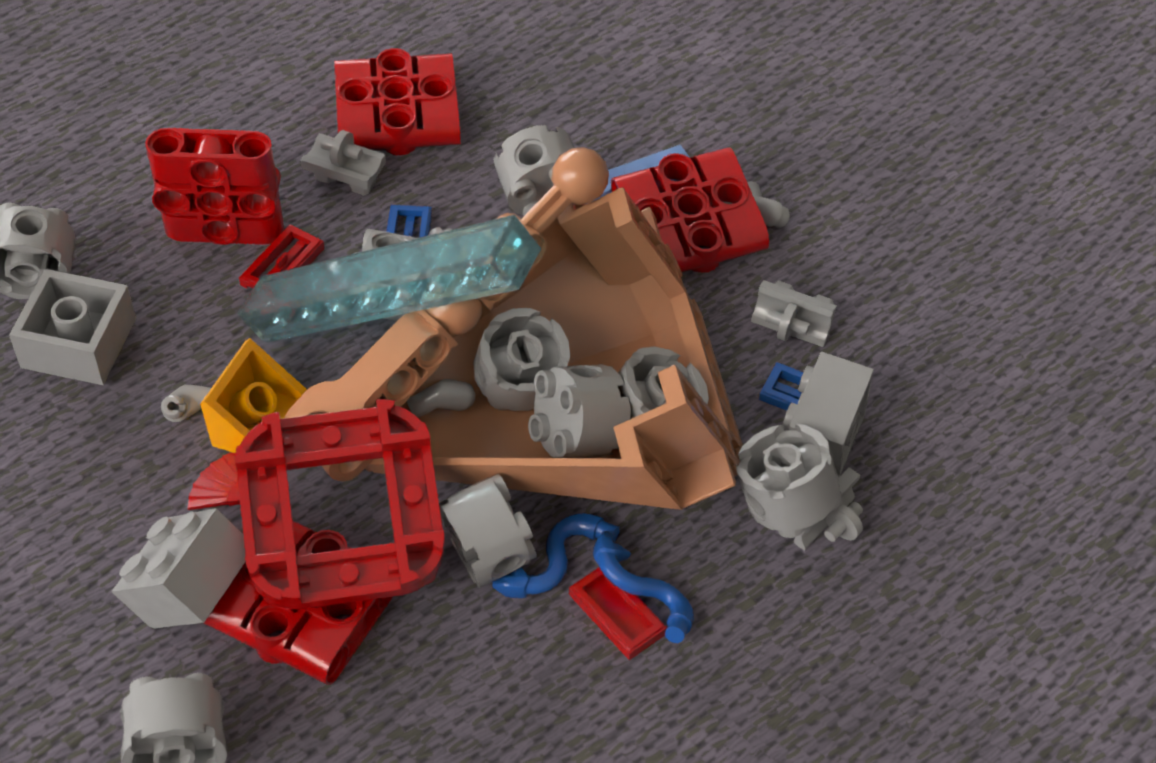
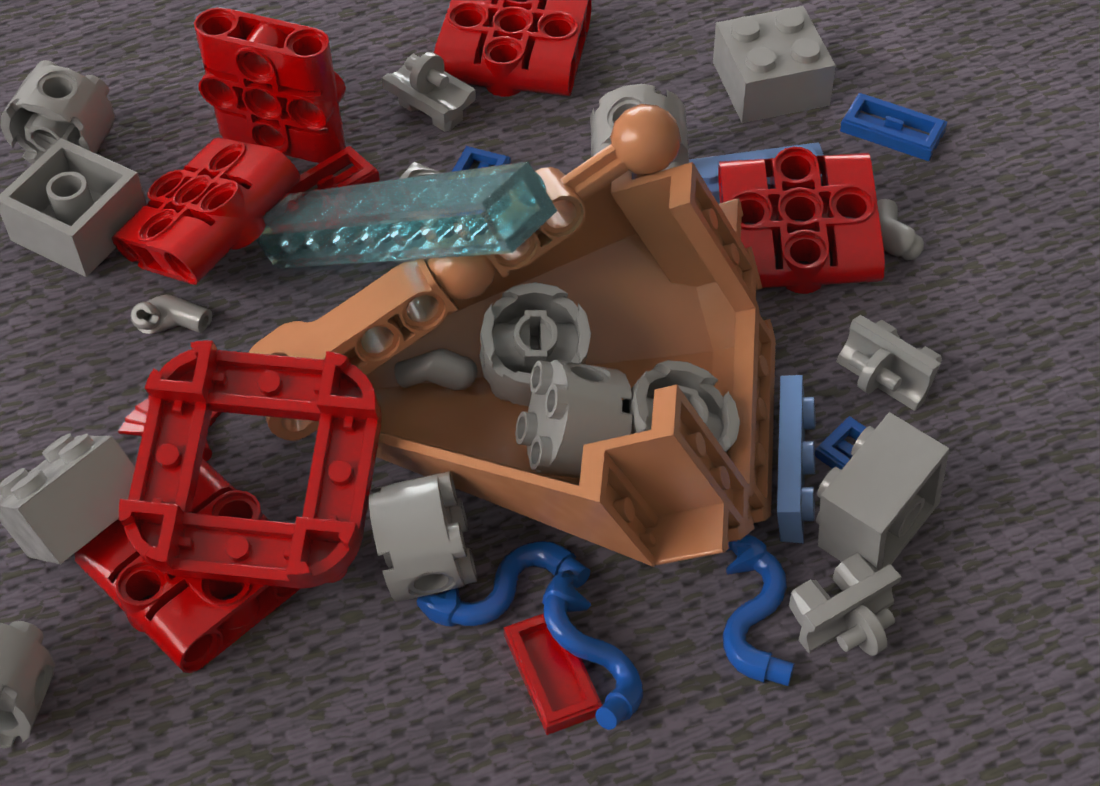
camera: 20 degrees right, 0 degrees up
(197, 305) = (206, 209): none -> red connector
(246, 392) = (225, 308): light orange slope -> none
(623, 85) = (773, 64): none -> light grey brick
(733, 124) = (891, 130): none -> blue tile
(747, 401) = (795, 459): none -> medium blue plate
(758, 564) = (748, 660): none -> blue animal
(789, 478) = (802, 560): light grey brick -> none

